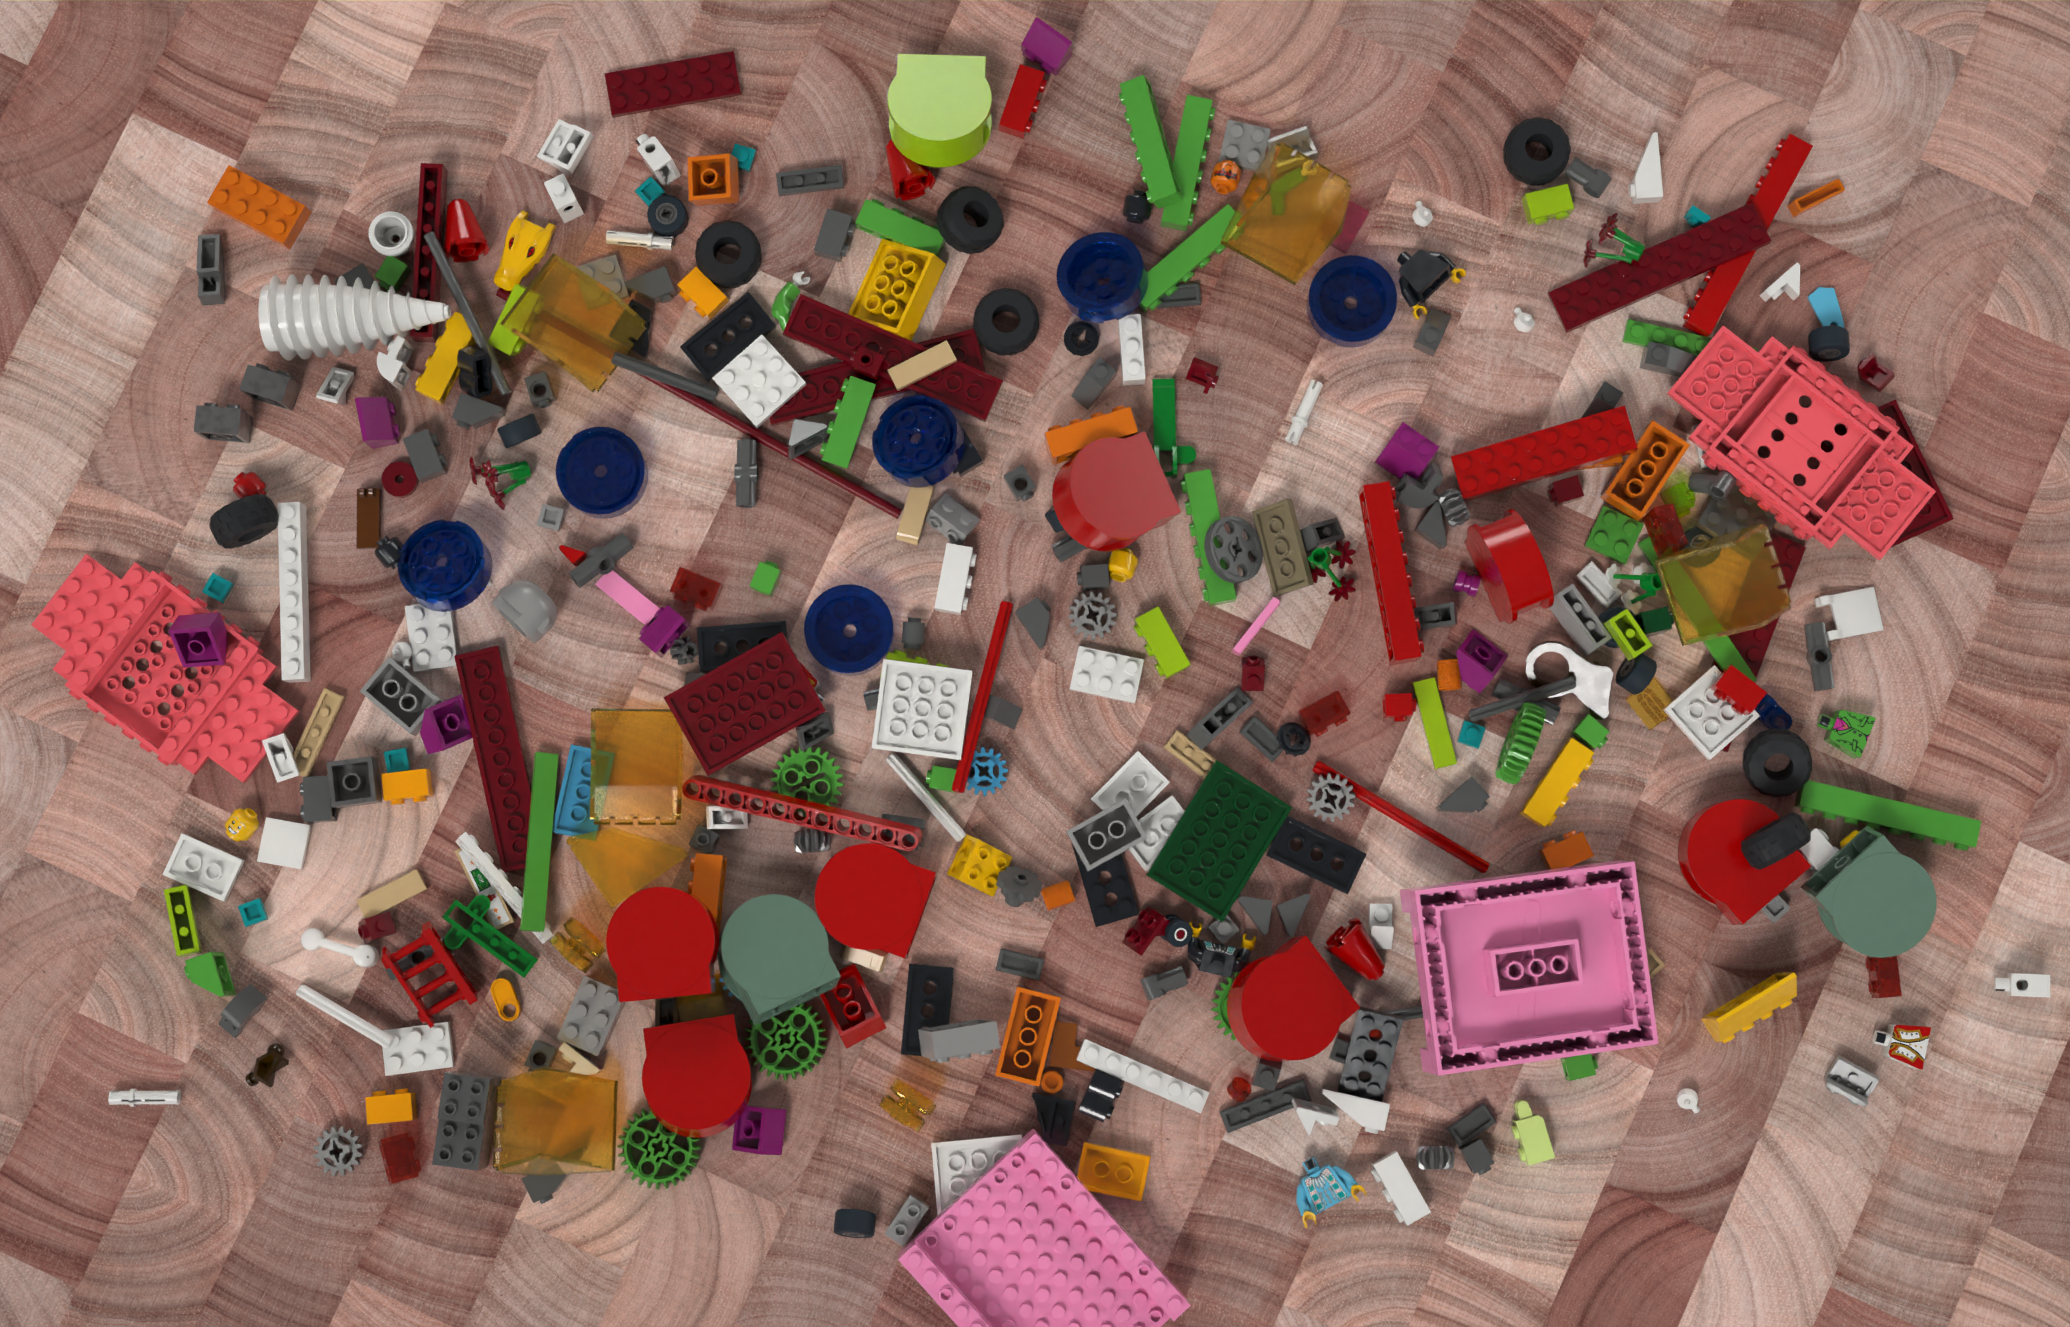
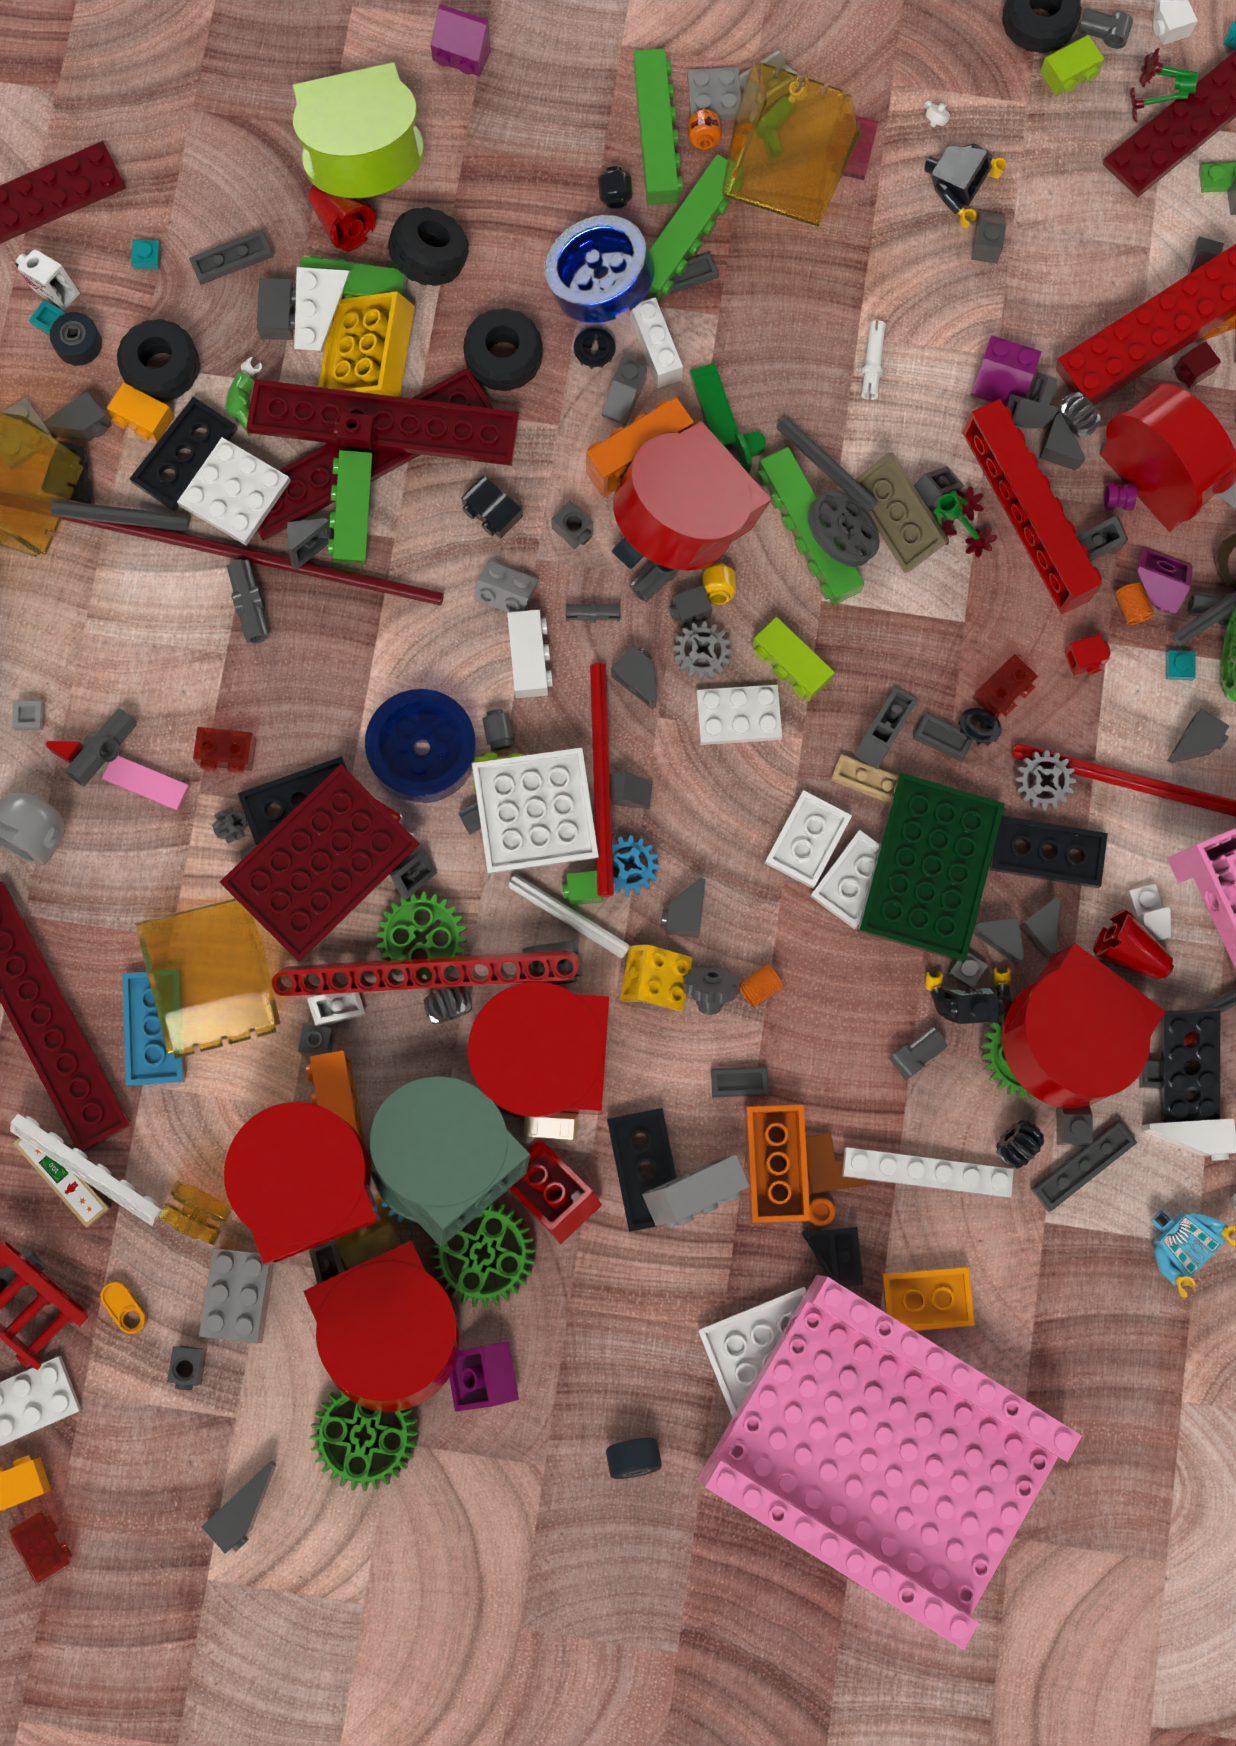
camera: 20 degrees left, 5 degrees down
(465, 1120) = (111, 1473): dark grey piece -> none
(487, 936) = (79, 1235): green piece -> none
(539, 842) = (114, 1103): bright green tile -> none
(555, 1123) = (225, 1444): clear yellow windscreen -> none
(583, 1063) = (242, 1360): white slope -> none
(618, 488) = (97, 662): clear blue brick -> none
(623, 860) = (222, 1087): clear yellow windscreen -> none
(640, 240) = (55, 373): white pin -> none
(663, 630) = (200, 803): magenta slope -> none
(713, 179) = (117, 281): orange brick -> none
(766, 578) = (304, 714): bright green brick -> none
(866, 243) = (316, 303): none -> white wing
(907, 1219) = (696, 1434): light grey brick -> none
(909, 1102) = (656, 1291): clear yellow wheel -> none
(915, 514) = (459, 590): tan beam -> none
(922, 365) = (420, 419): tan tile -> none
(936, 451) = (454, 526): clear blue brick -> none
(1015, 559) = (592, 612): none -> dark grey pin
(1017, 820) = (685, 912): none -> dark grey slope
(1022, 101) = (450, 109): red brick -> none
(1096, 891) = (802, 968): black plate -> none
(1100, 1096) = (885, 1210): black brick -> none
(1106, 835) = (799, 895): light grey brick -> none
(1150, 142) = (610, 111): bright green brick -> none
(1153, 924) = (887, 986): dark red plate -> none
(1203, 374) = (746, 348): dark red bracket -> none
(1219, 1075) = (1020, 1144): none -> black gear
(1238, 490) = (827, 464): none -> dark grey axle
(1239, 1089) = (1049, 1155): clear red tile -> none
(1252, 673) = (908, 665): dark red bracket -> none
(1256, 626) = (895, 611): bright pink tile -> none
(1311, 1112) = (1142, 1158): white slope -> none
(1356, 279) = (892, 200): clear blue brick -> none
(1434, 723) = (1135, 664): lime tile -> none
(1523, 321) = (1086, 196): white piece -> none

